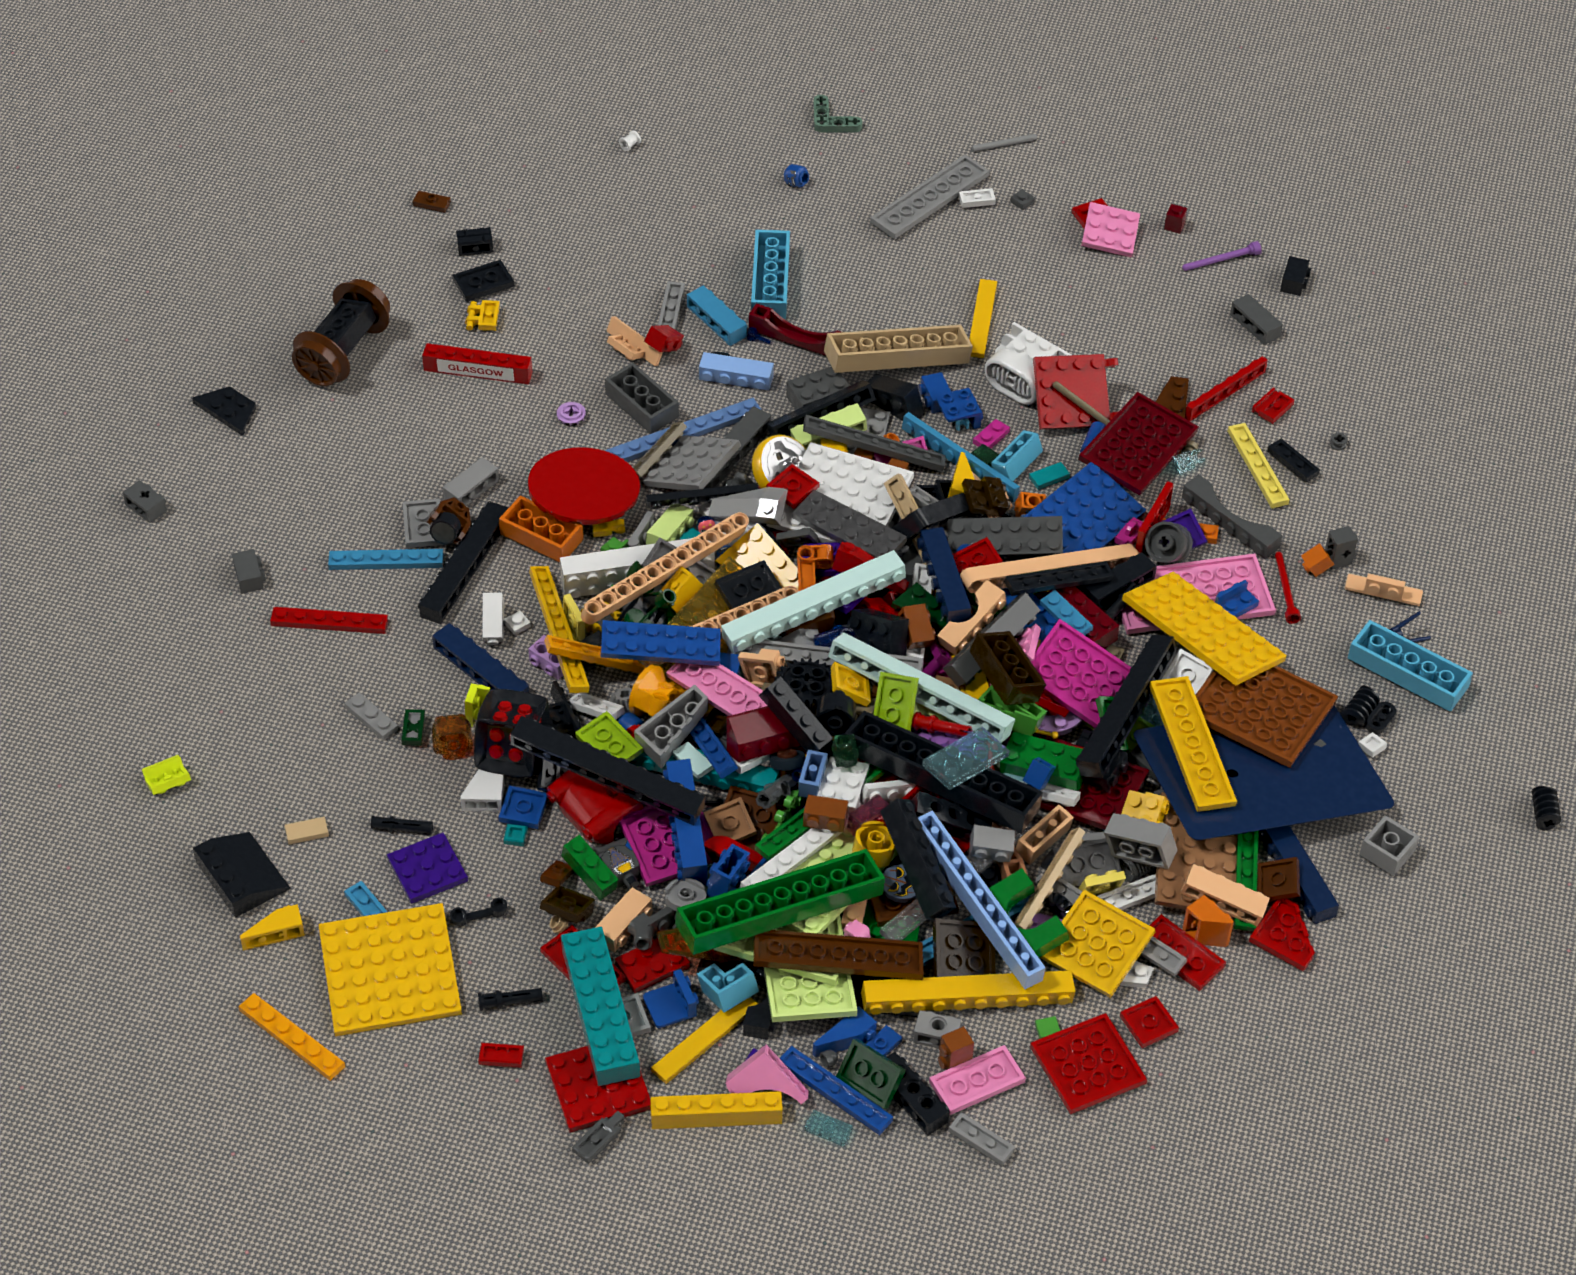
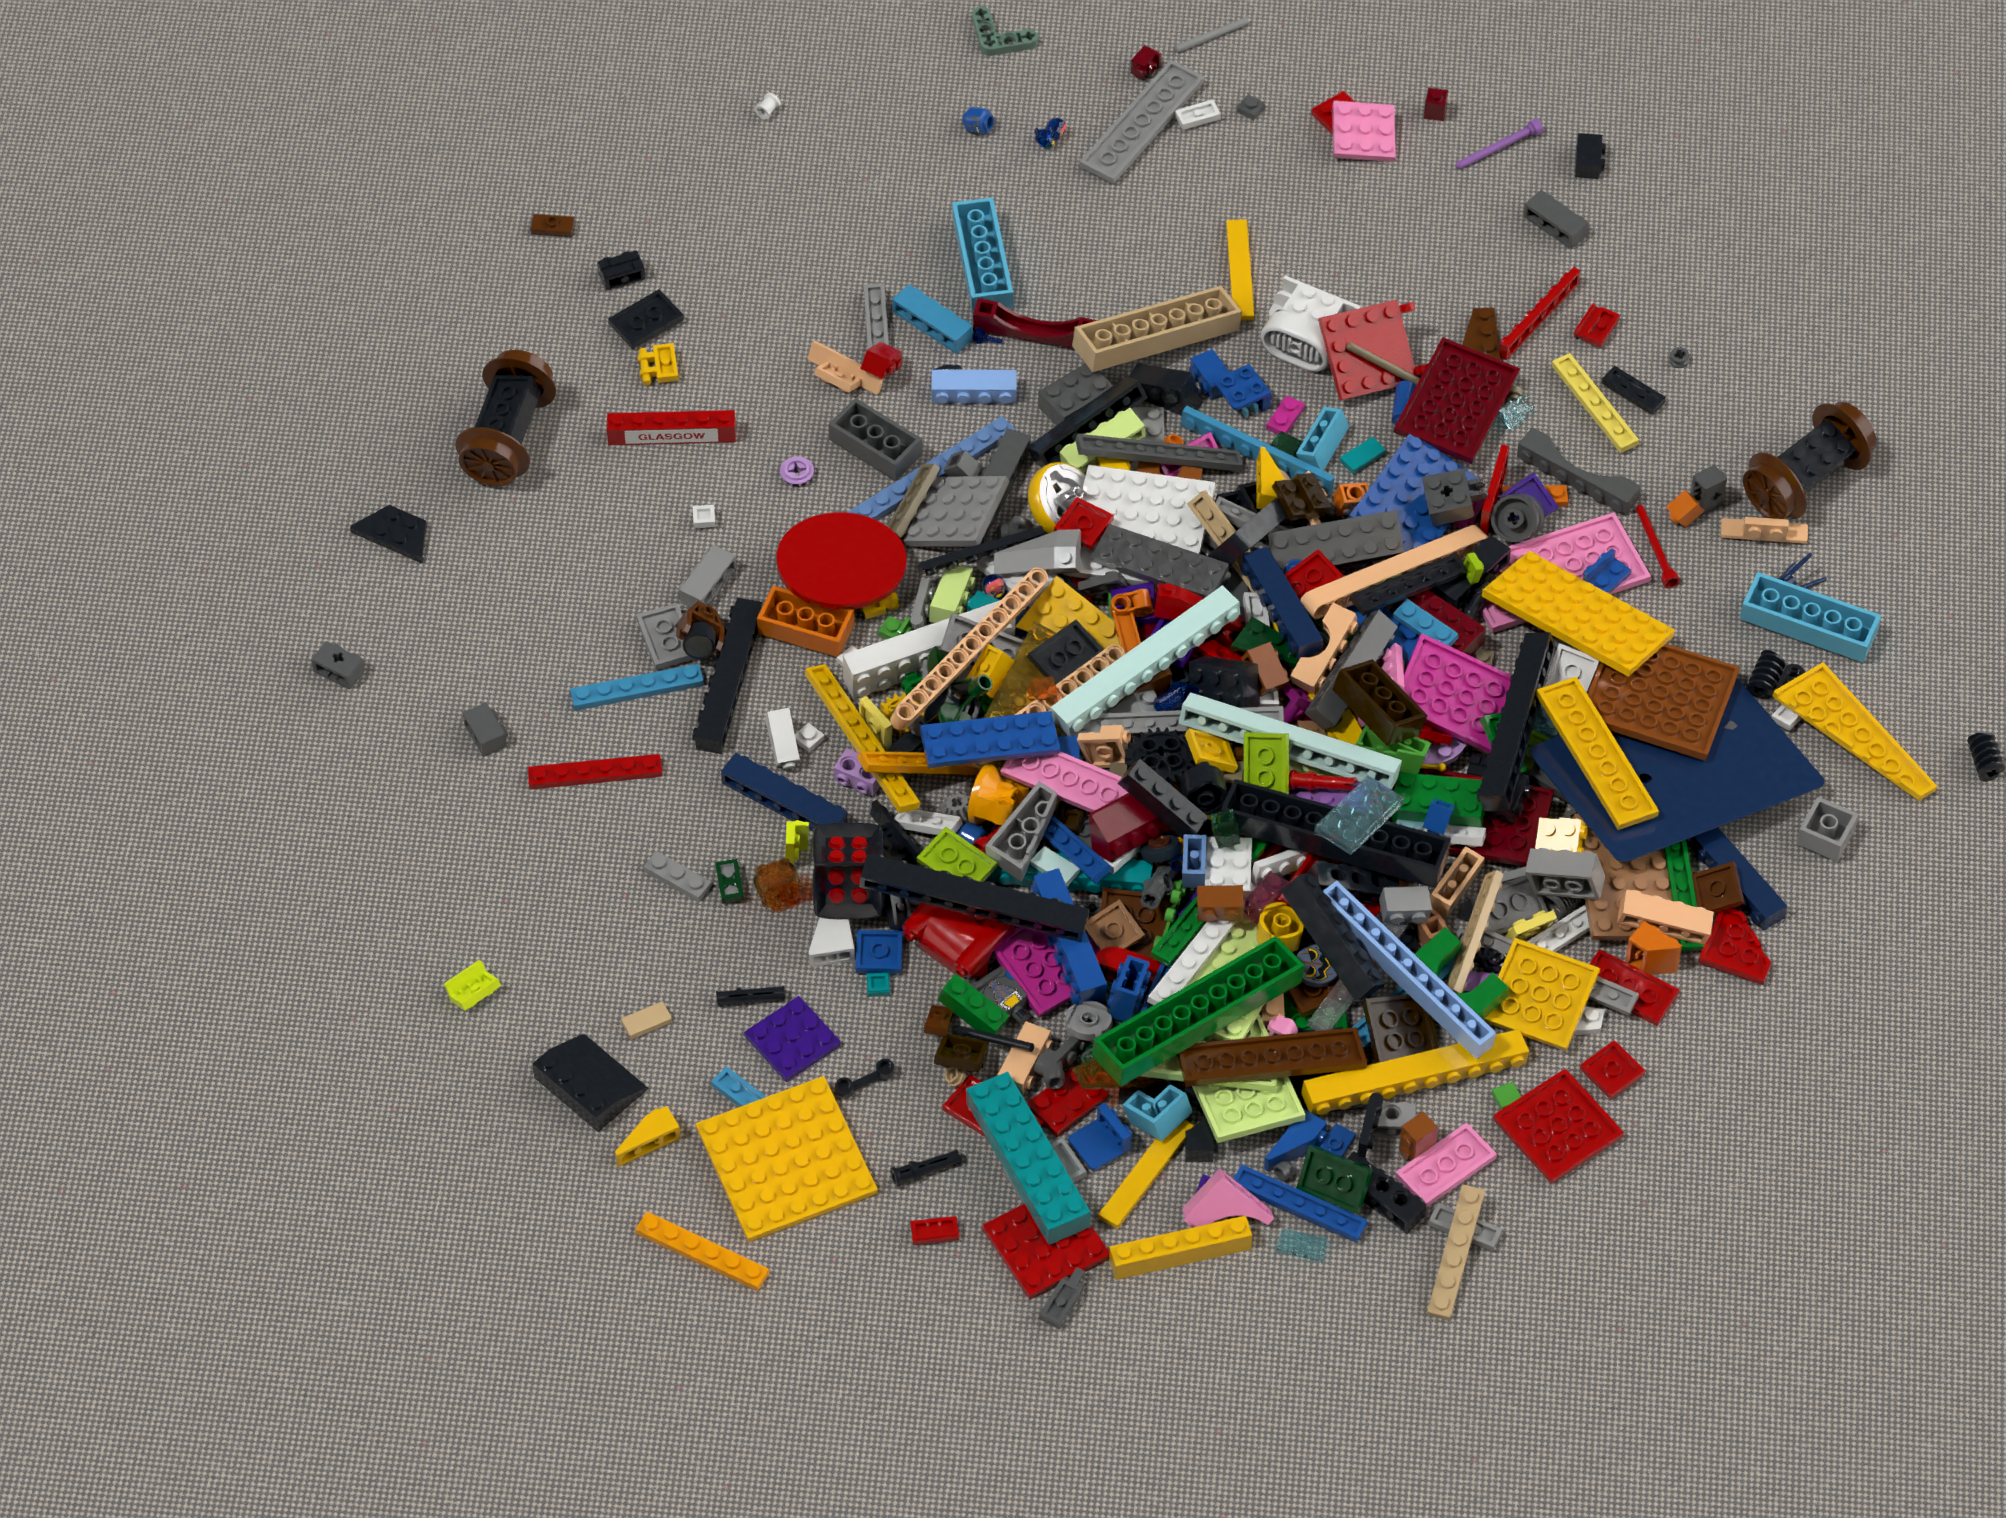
camera: 10 degrees left, 5 degrees up
(483, 435) = (704, 516): none -> white plate
(600, 897) = (994, 1038): none -> black bar
(708, 428) = (962, 465): none -> dark grey brick
(719, 610) = (1042, 689): none -> clear orange bracket
(853, 193) = (1051, 133): none -> clear blue animal
(914, 1028) = (1370, 1123): none -> black hinge
(944, 153) = (1145, 62): none -> dark red brick
(966, 1160) = (1456, 1252): none -> tan plate
(1114, 514) = (1450, 497): none -> dark grey hinge
(1120, 575) = (1474, 567): none -> lime plate
(1419, 750) = (1838, 714): none -> yellow wing
(1462, 523) = (1838, 439): none -> reddish brown brick

